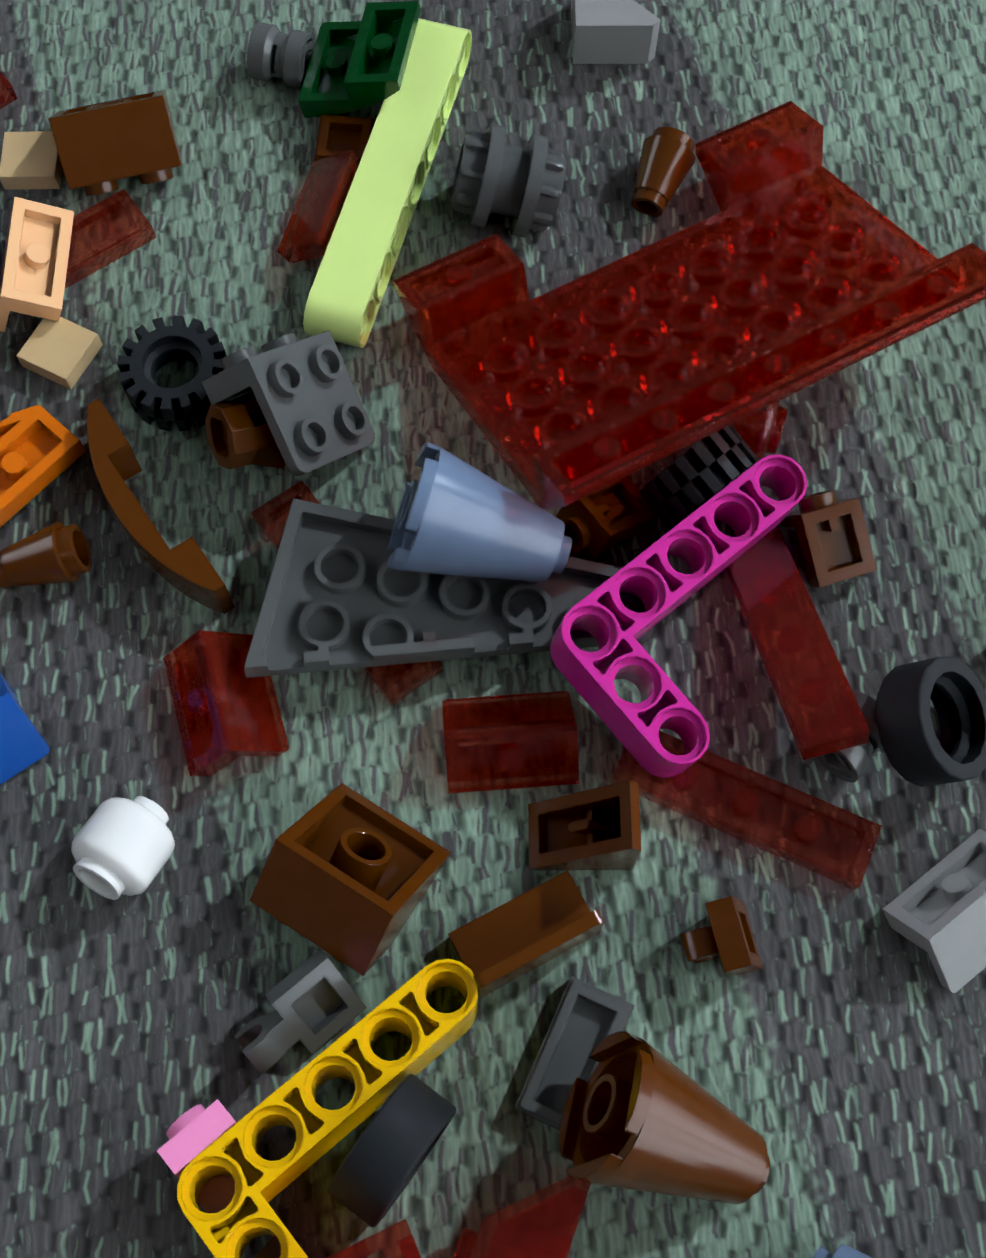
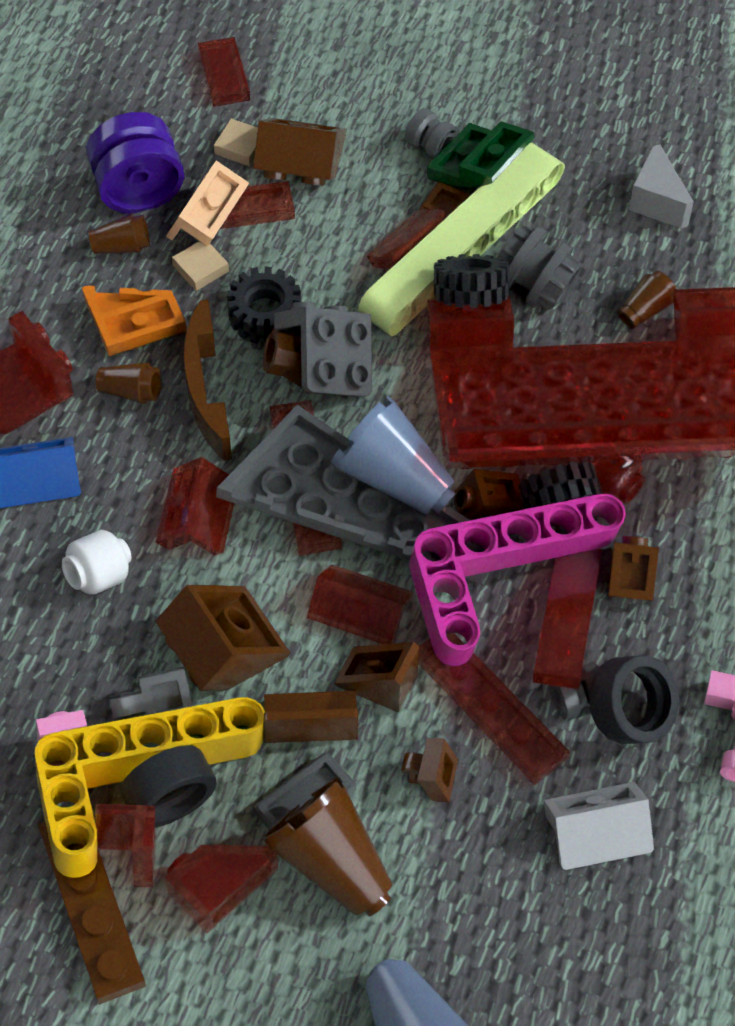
camera: 25 degrees right, 10 degrees down
(440, 232) = (471, 280): none -> black tyre

